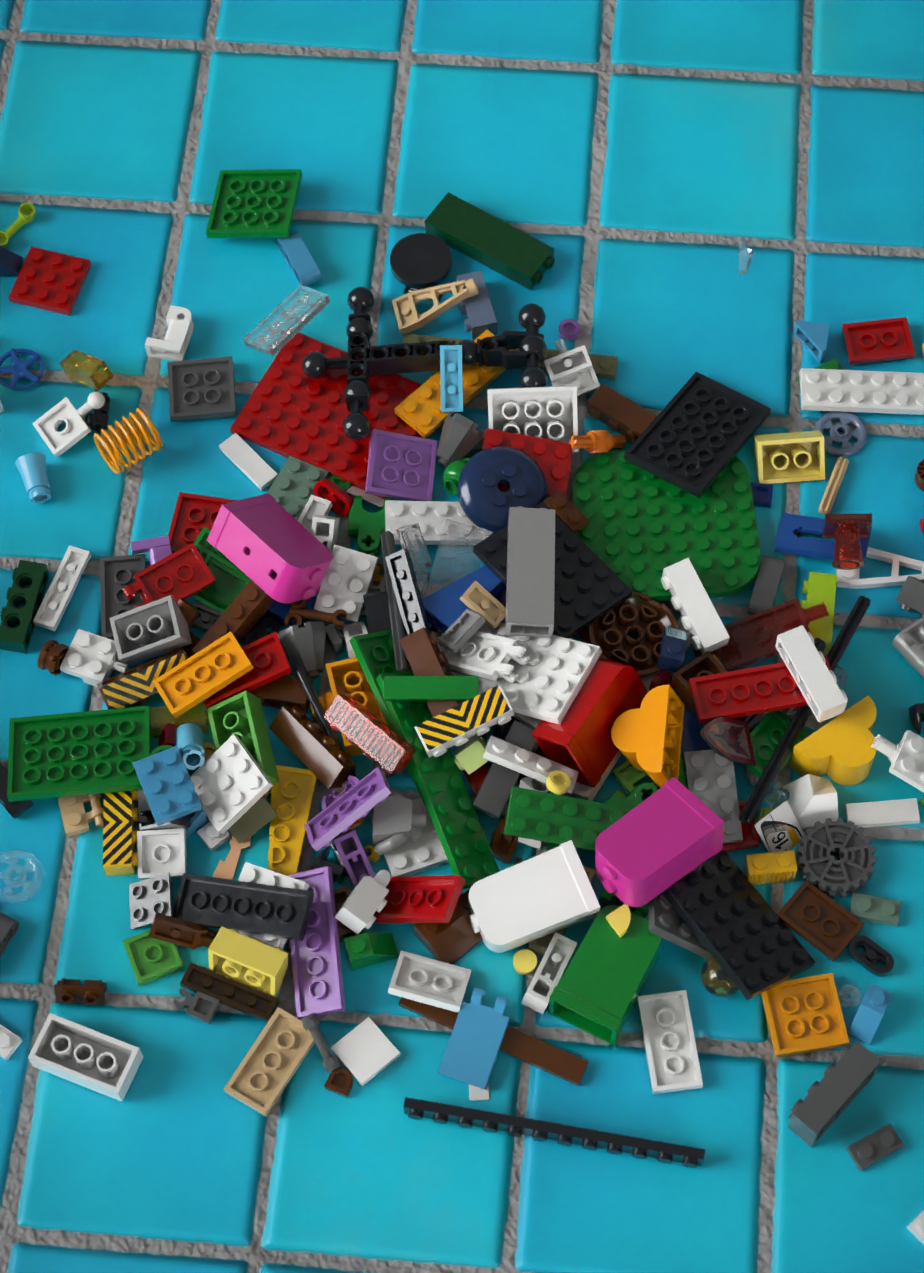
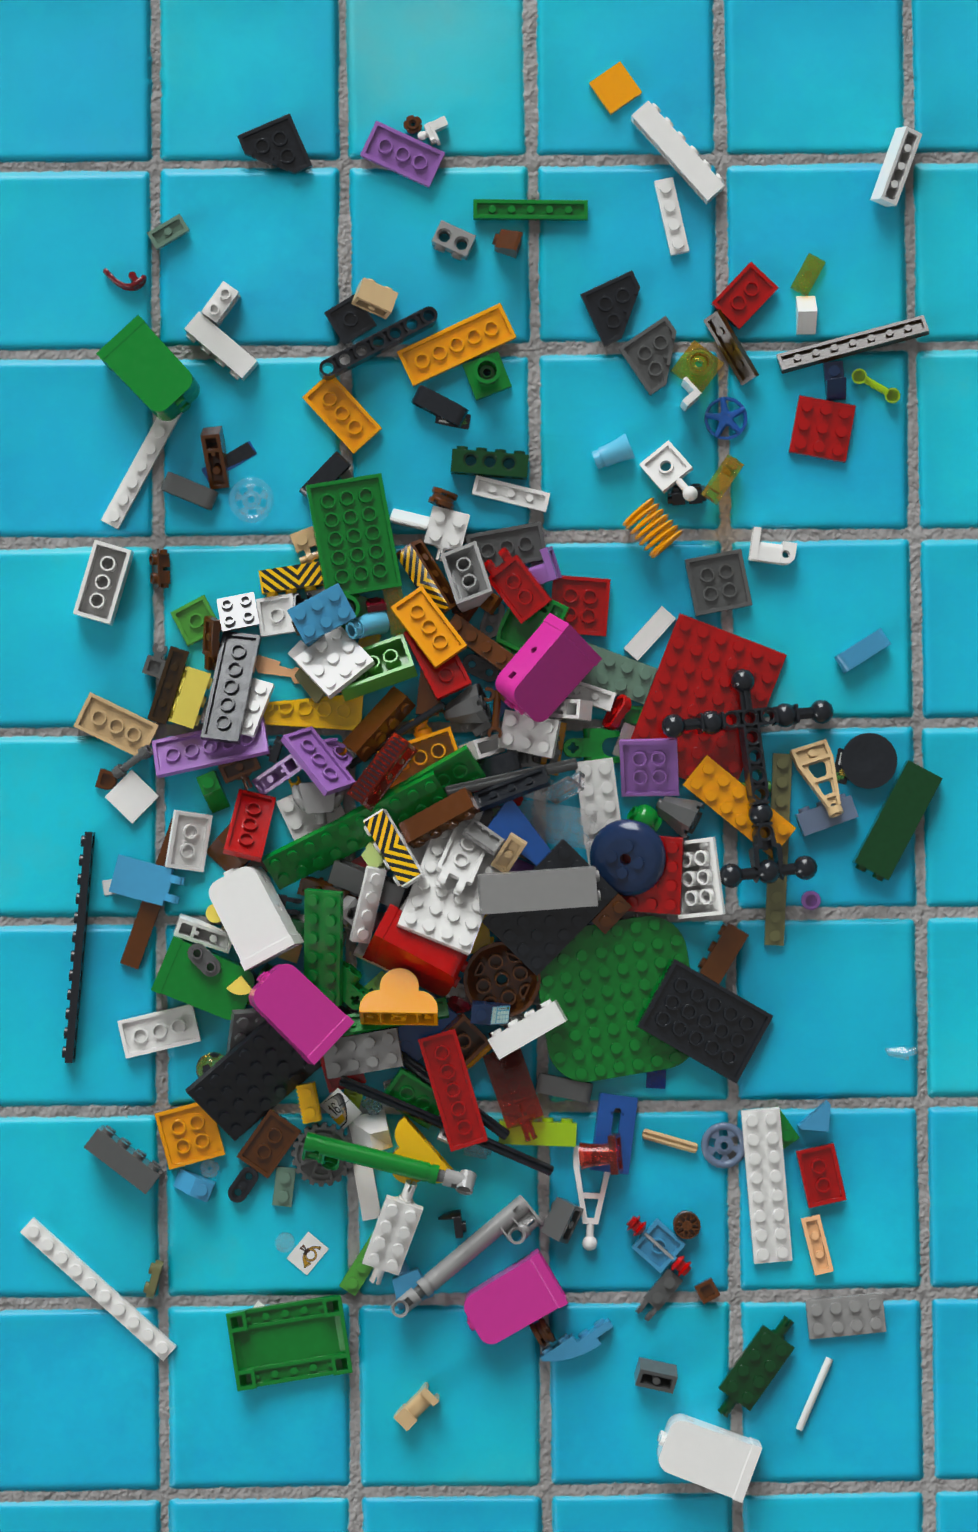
camera: 80 degrees right, 25 degrees up
(75, 695) = (409, 519): none -> white slope
(254, 203) = (916, 602): green plate -> none
(286, 320) = (793, 648): clear plate -> none
(364, 902) = (244, 783): white hinge -> none
(430, 688) = (421, 818): green tile -> none
(451, 378) = (729, 803): medium azure plate -> none
(558, 782) = (350, 929): light yellow tile -> none
(572, 369) = (758, 906): white plate -> none
(583, 959) = (204, 959): none -> dark grey plate
(597, 441) = (689, 935): orange axle -> none
(730, 739) = (404, 1064): shield -> none
(789, 457) = (693, 1101): light yellow slope -> none
(811, 673) = (465, 1127): white brick -> none
(833, 830) = (330, 1151): none -> green piece
(875, 1147) = (91, 1191): dark grey plate -> none

